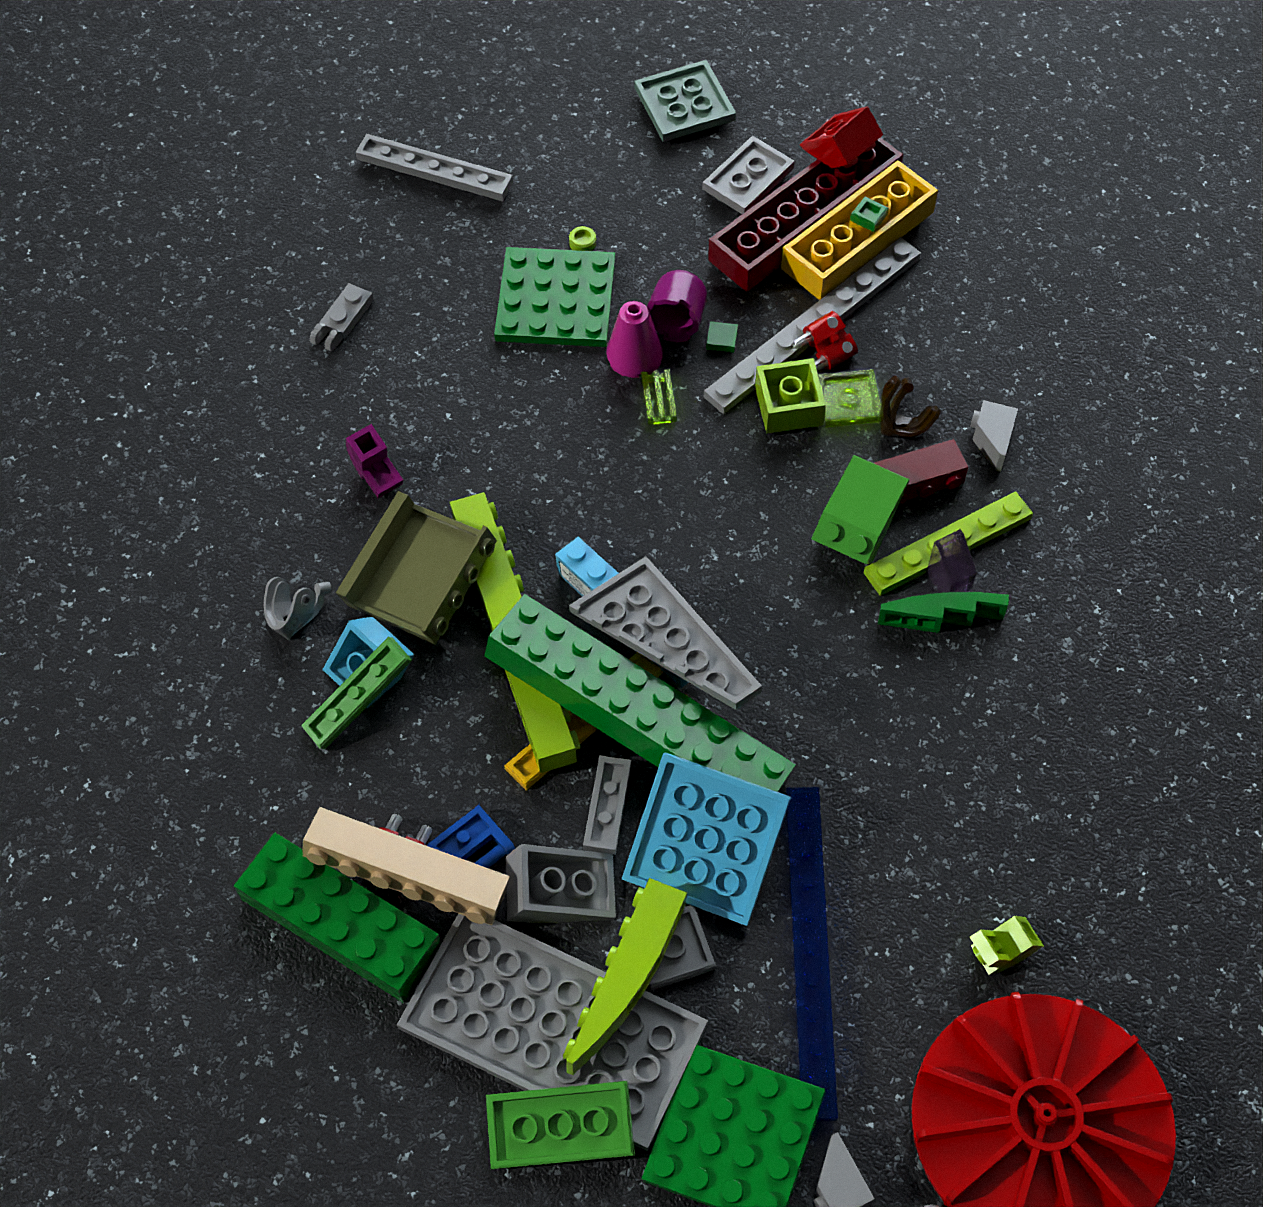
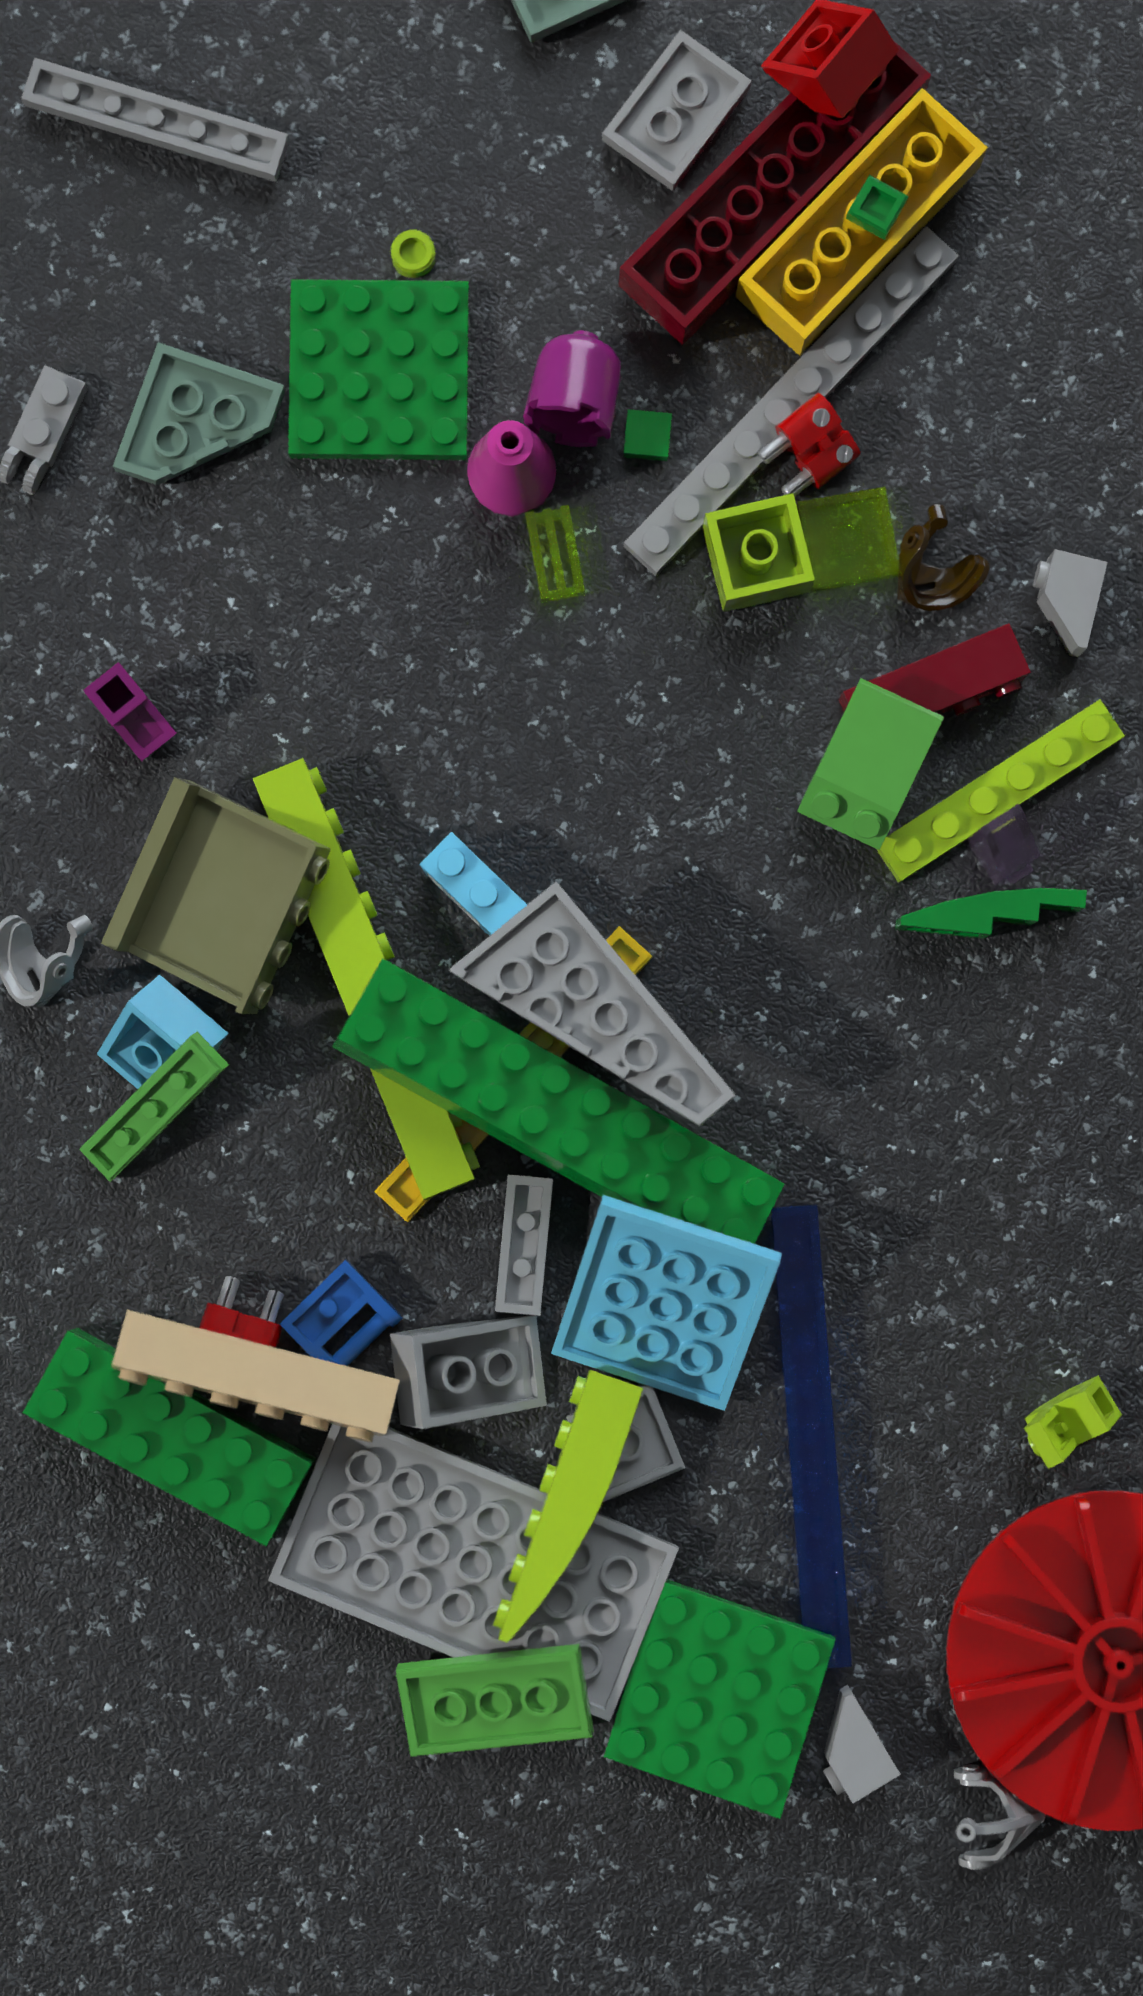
camera: 10 degrees left, 25 degrees up
(436, 311) = (193, 414): none -> sand green plate

